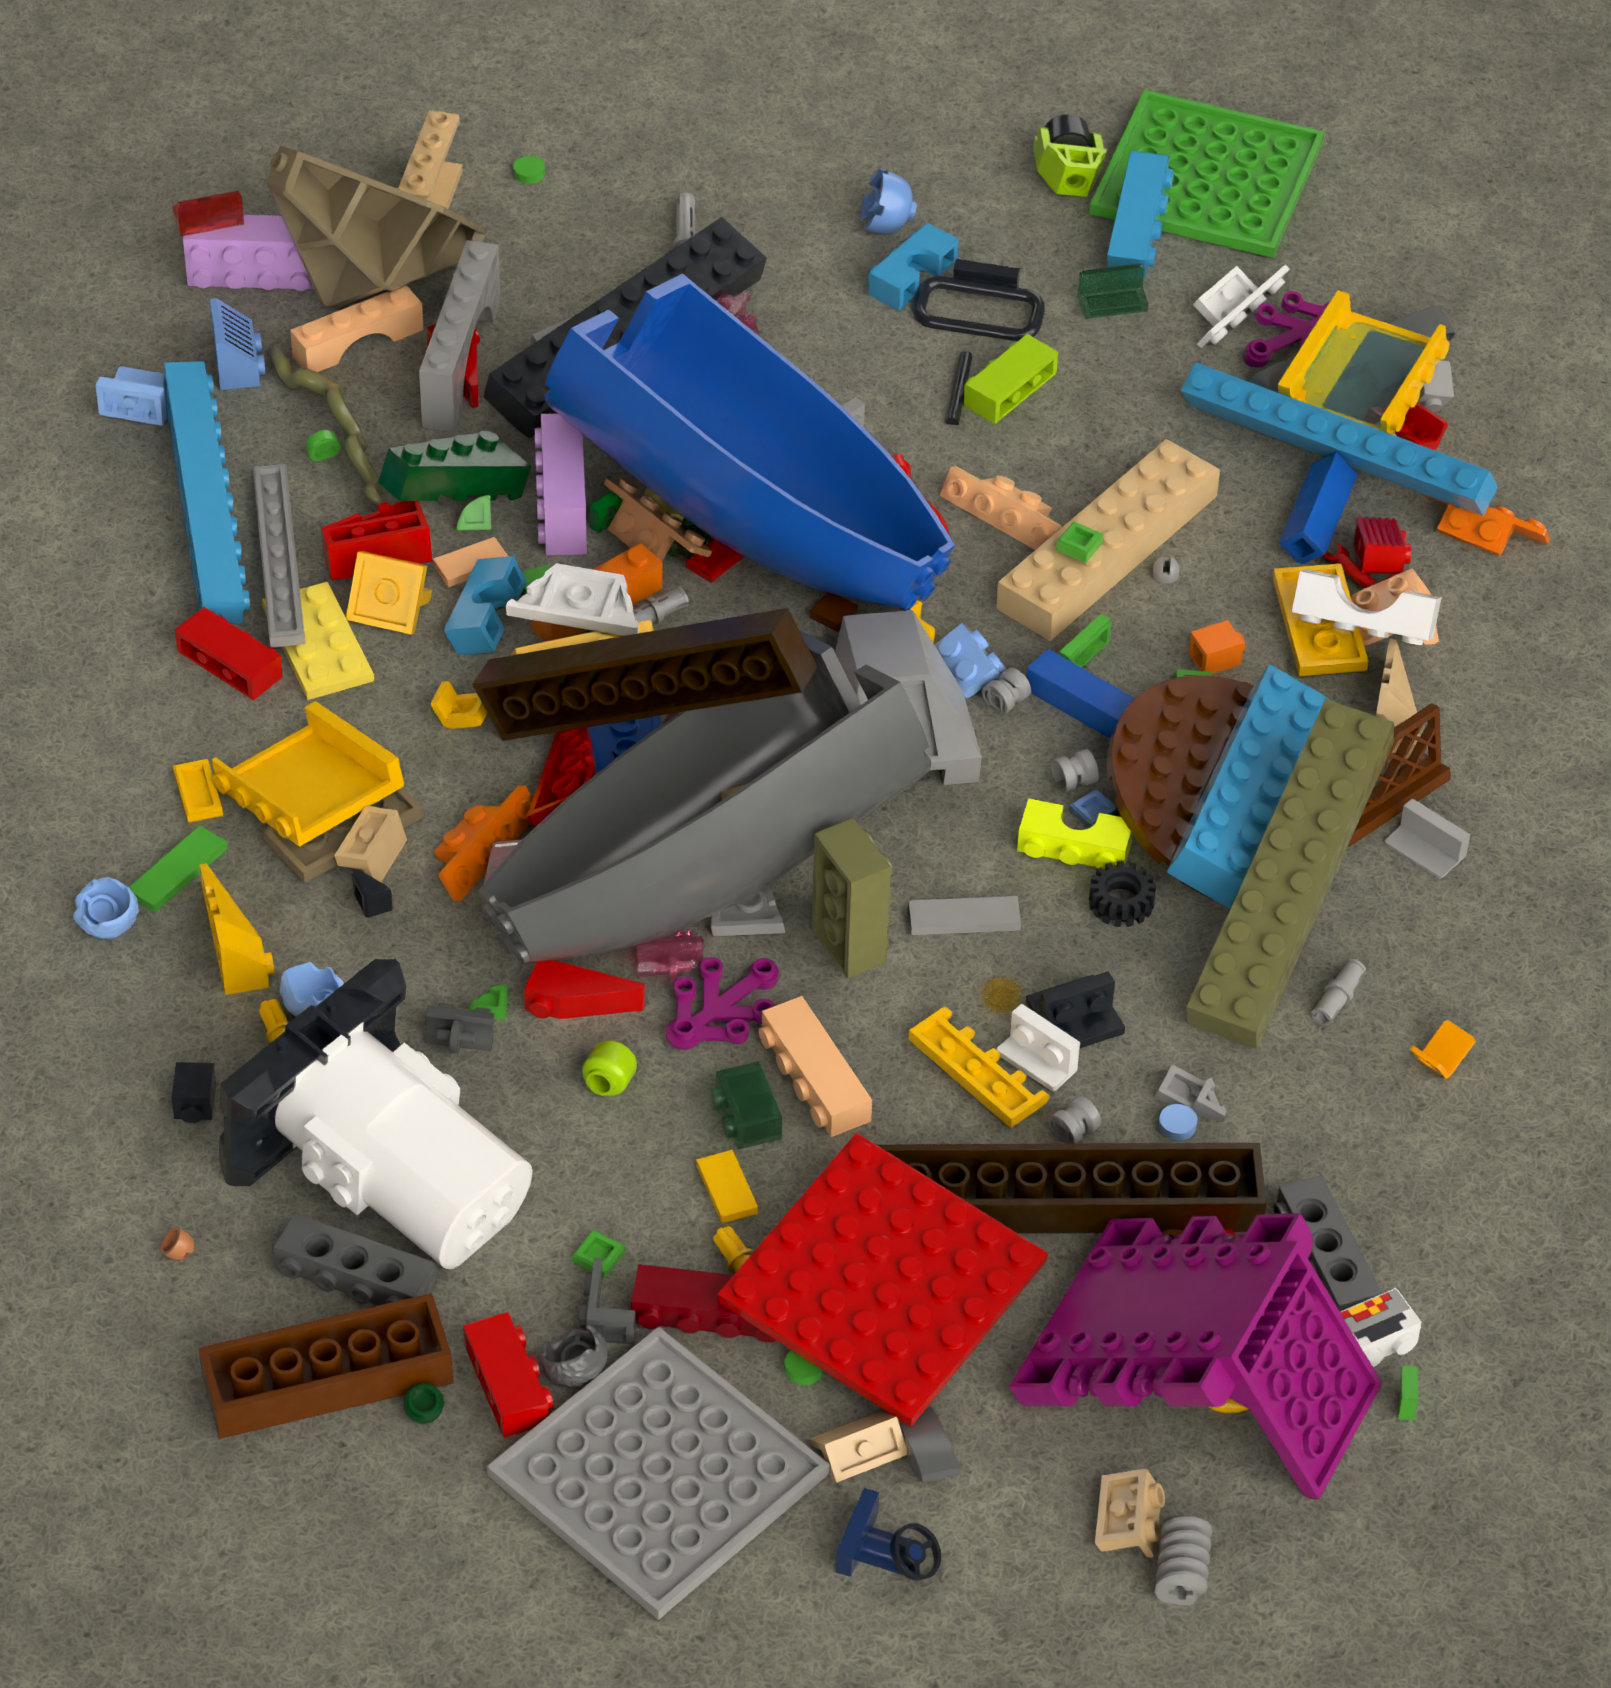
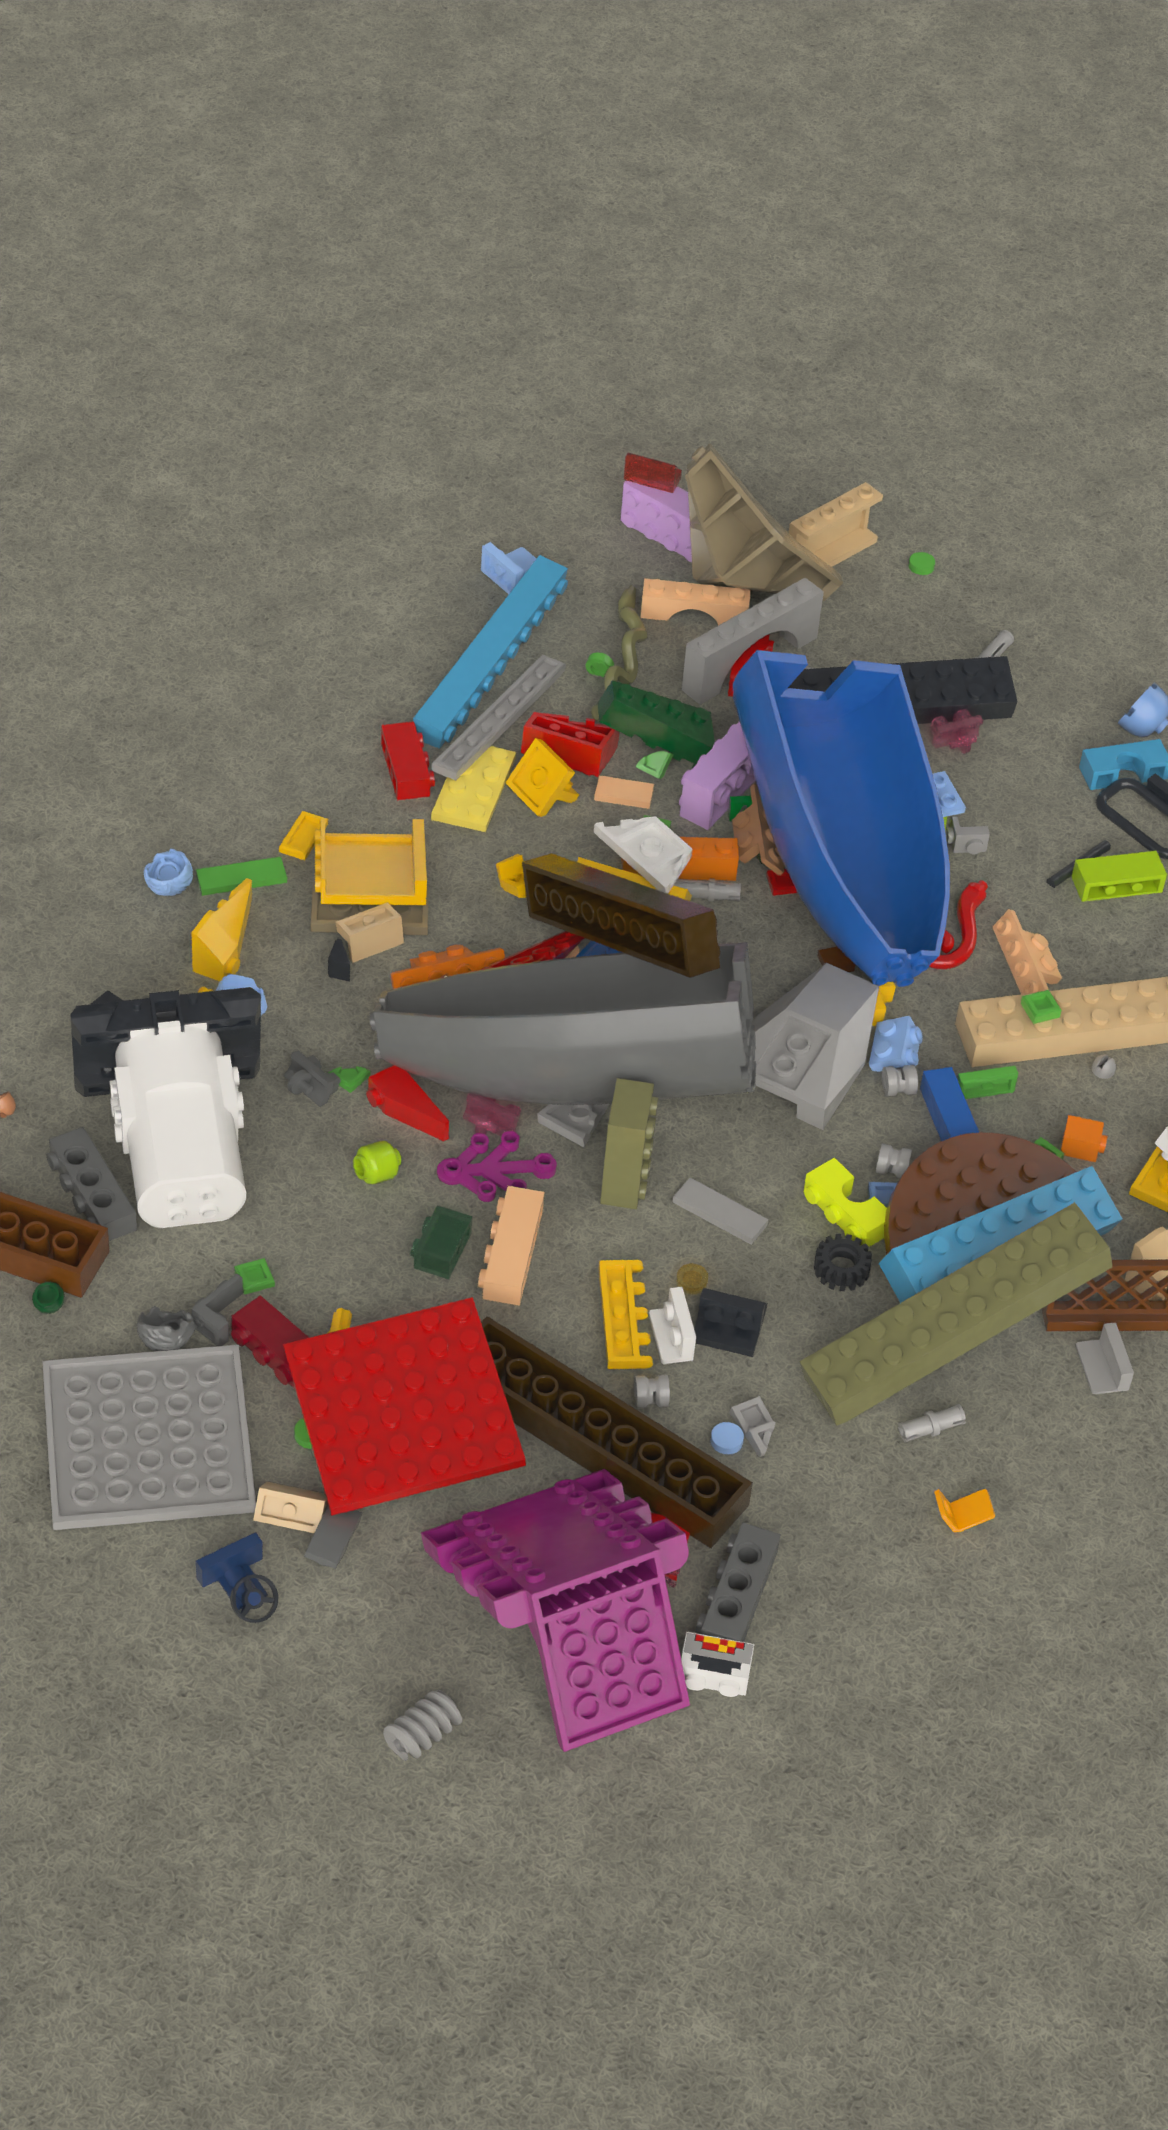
camera: 35 degrees right, 0 degrees up
(235, 347) = (601, 570): medium blue slope -> none
(474, 622) = (576, 830): dark azure arch -> none
(507, 1373) = (114, 1311): red brick -> none
(727, 1186) = (379, 1286): yellow tile -> none
(1129, 1512) = (422, 1669): tan bracket -> none
(1407, 1392) = (695, 1721): bright green tile -> none

